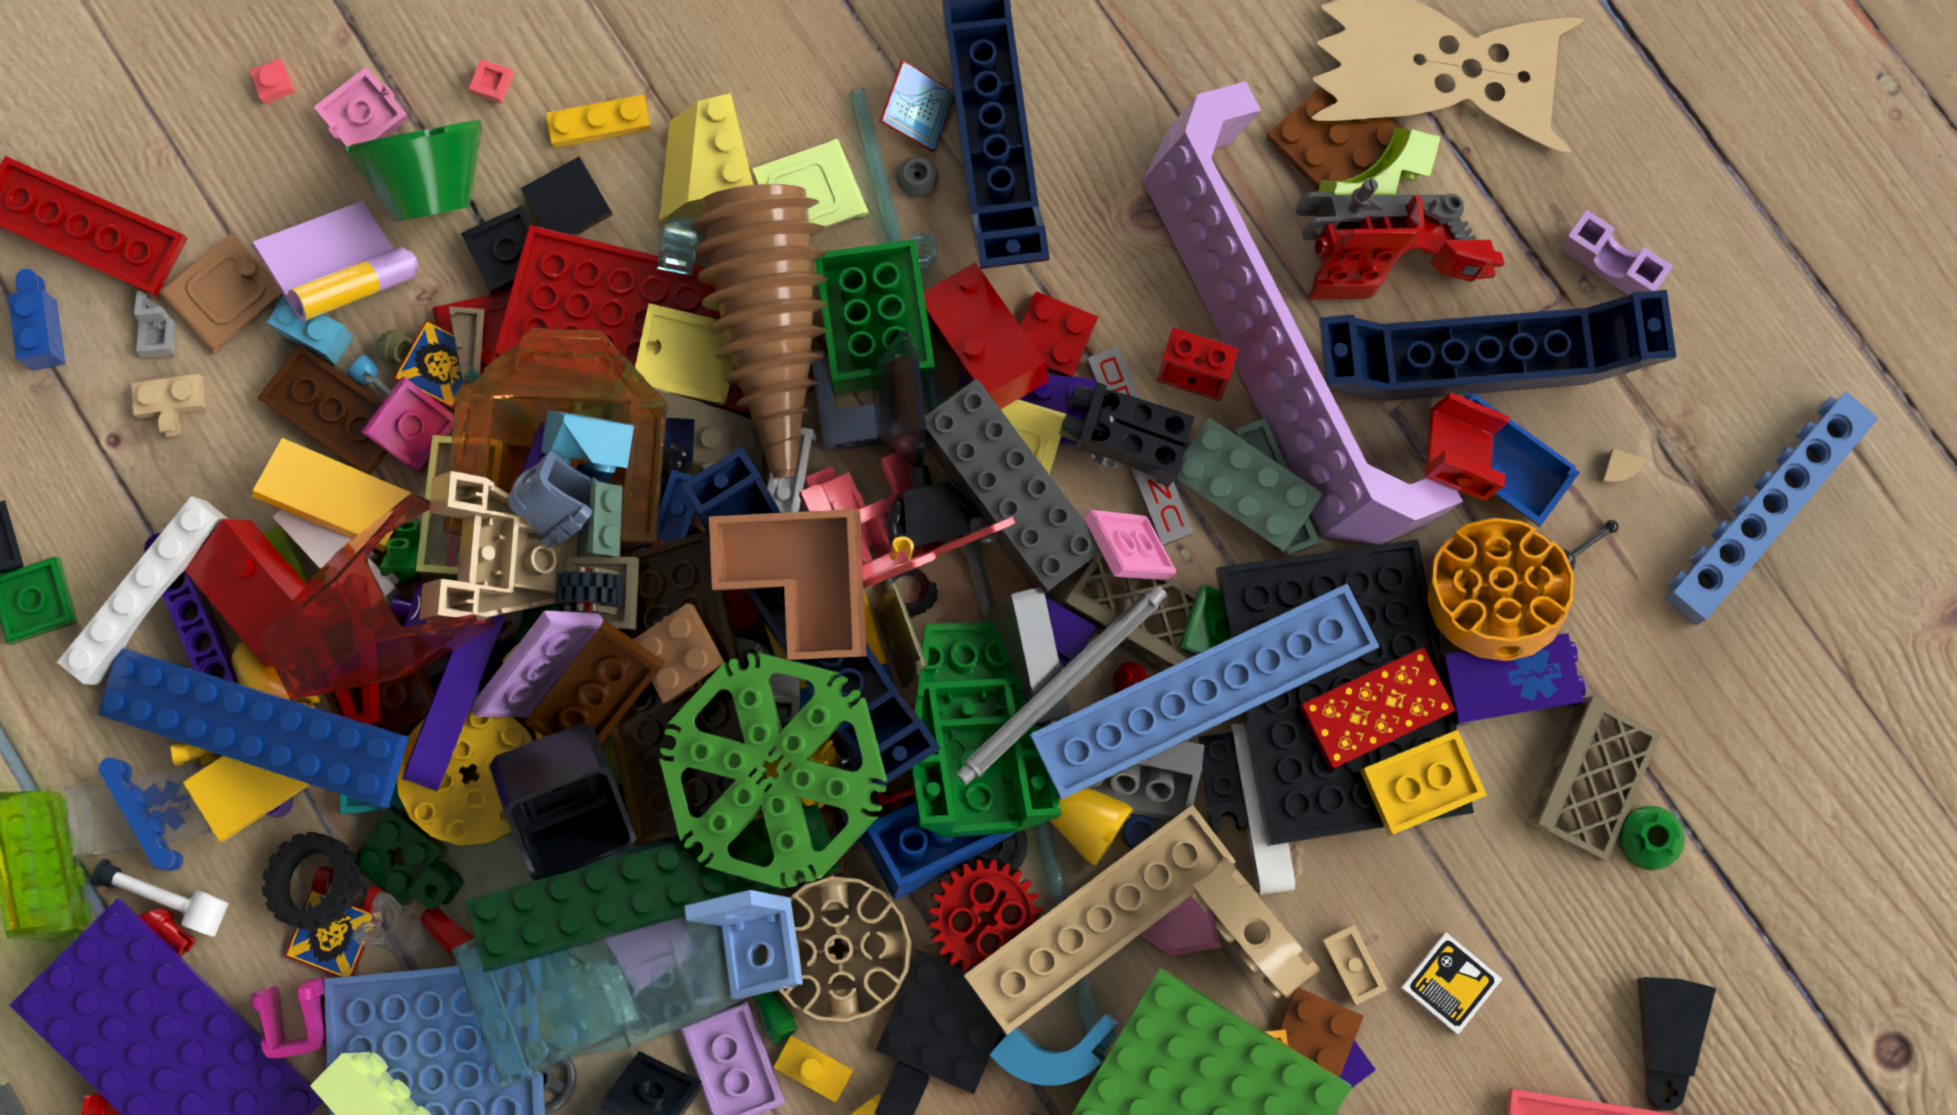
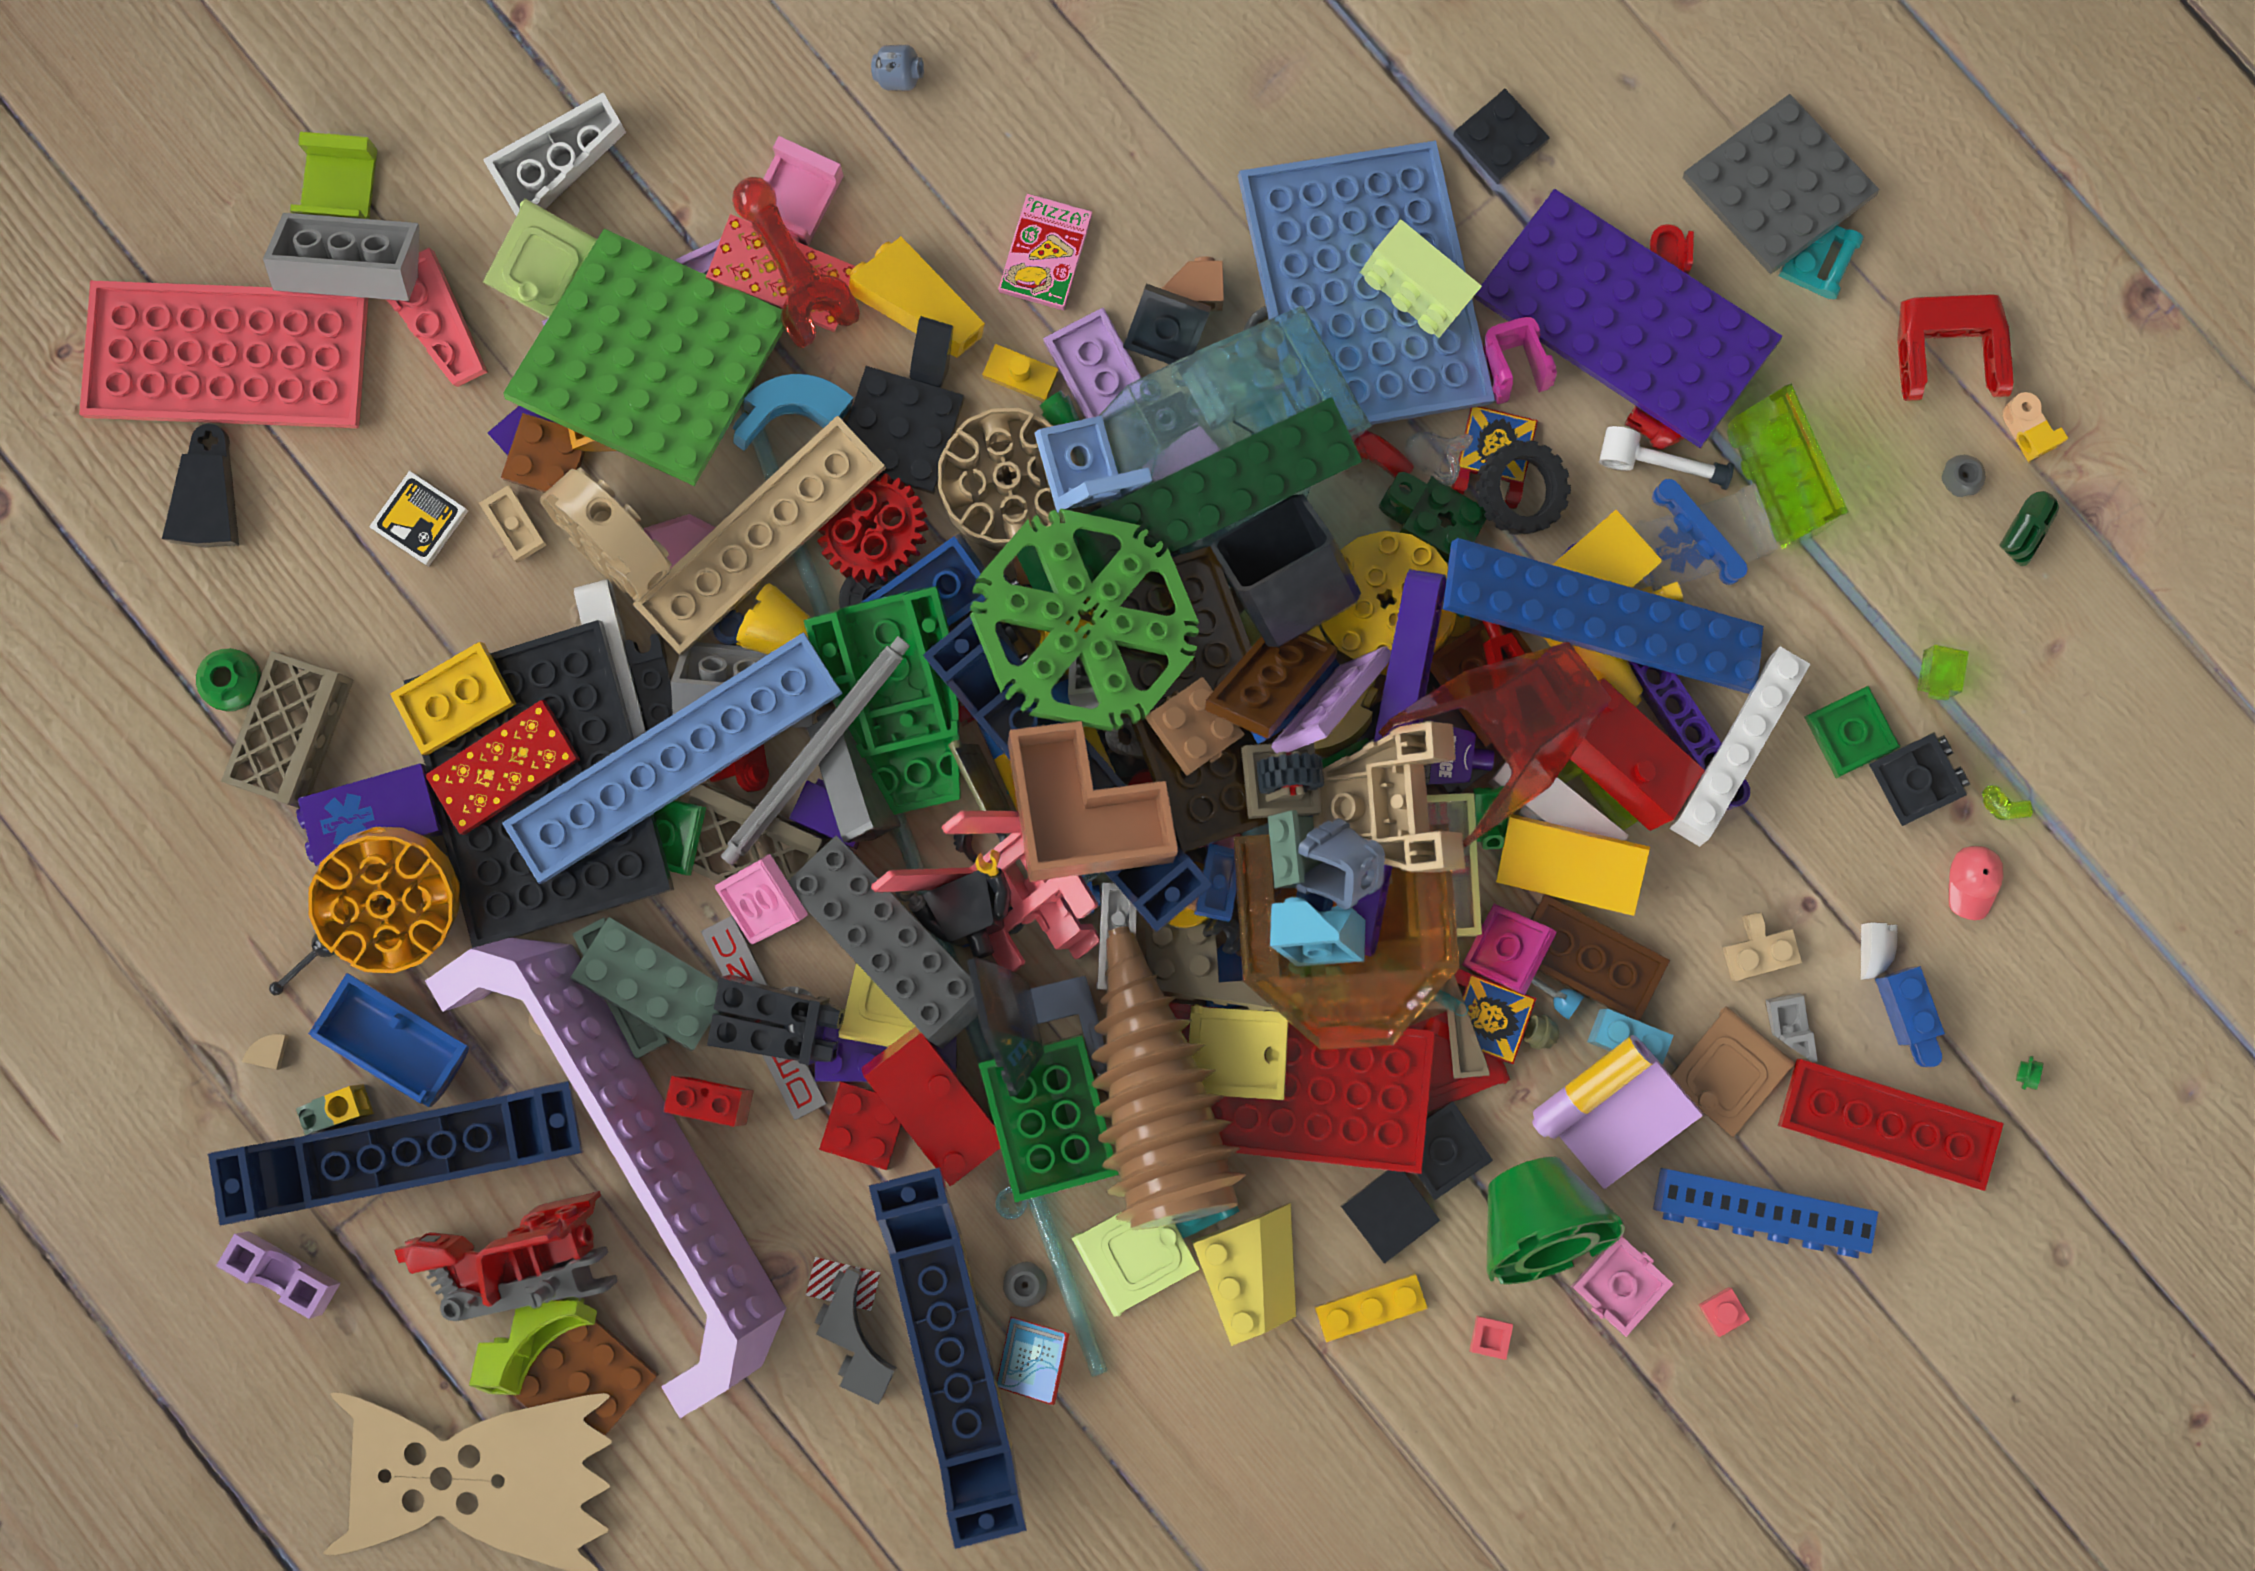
camera: 170 degrees right, 5 degrees up
(56, 390) = (1877, 948): none -> white brick
(215, 161) = (1765, 1211): none -> blue brick
(678, 246) = (1262, 1168): clear light blue plate -> none
(1075, 117) = (866, 1371): none -> dark grey arch
(1087, 198) = (824, 1273): none -> sticker
(1462, 446) = (428, 1038): red panel -> none
(1557, 403) = (334, 1109): none -> yellow leg
(1851, 423) = (27, 1119): medium blue brick -> none

